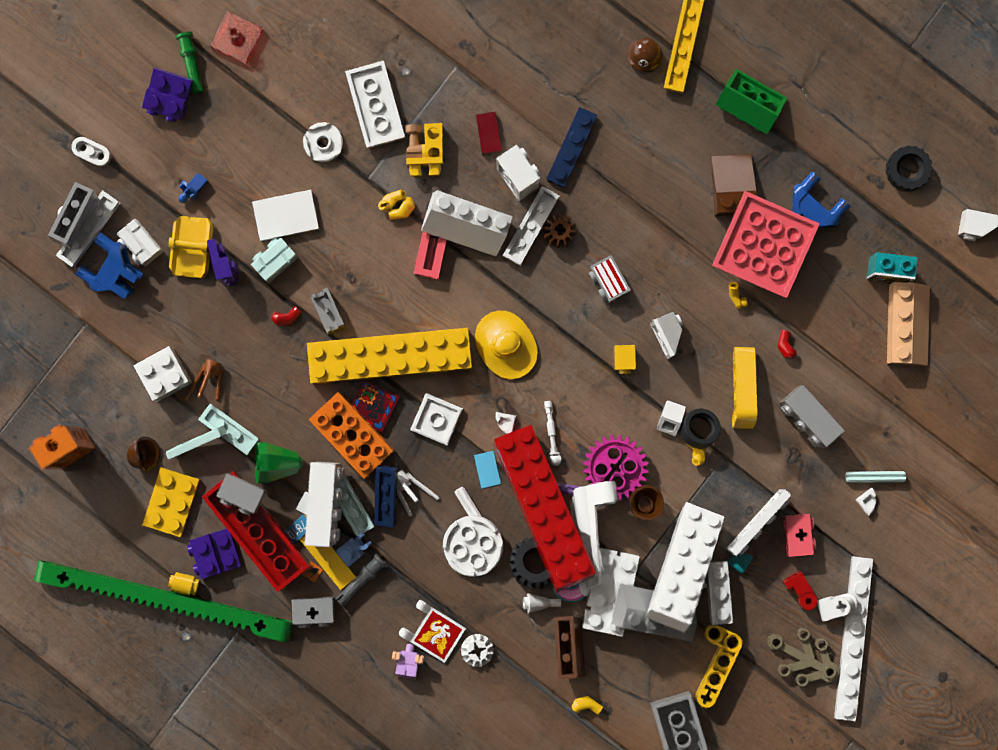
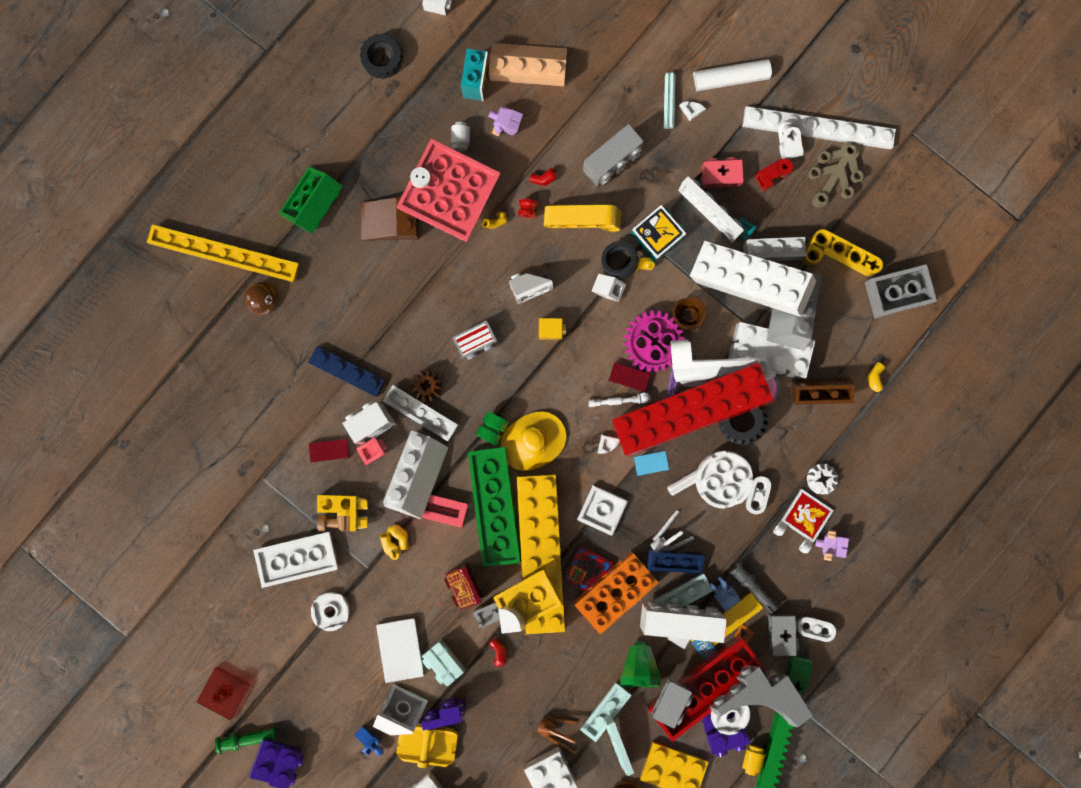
camera: 90 degrees left, 0 degrees up
(223, 217) = (400, 712): none -> white slope
(238, 549) = (732, 725): none -> white tile
(257, 580) = (756, 690): none -> light grey arch
(321, 325) = (511, 620): none -> white brick
(321, 646) = (815, 629): none -> white plate
(341, 343) = (531, 597): none -> yellow plate
(352, 278) = (464, 587): none -> dark red slope
(436, 306) = (494, 507): none -> green plate
(457, 583) = (760, 496): none -> white plate
(490, 177) = (372, 450): none -> coral bracket
(517, 300) = (492, 427): none -> green wheel
(535, 603) = (779, 421): white cone -> none
(577, 443) = (629, 377): none -> dark red tile
(731, 469) = (658, 232): none -> piece
(752, 329) = (527, 208): none -> red wheel
(776, 214) = (420, 177): none -> white tile
(808, 207) = (414, 149): blue connector -> none
(825, 255) = (460, 136): none -> white brick
(845, 302) = (505, 120): none -> lavender piece
(906, 543) = (732, 75): none -> white brick

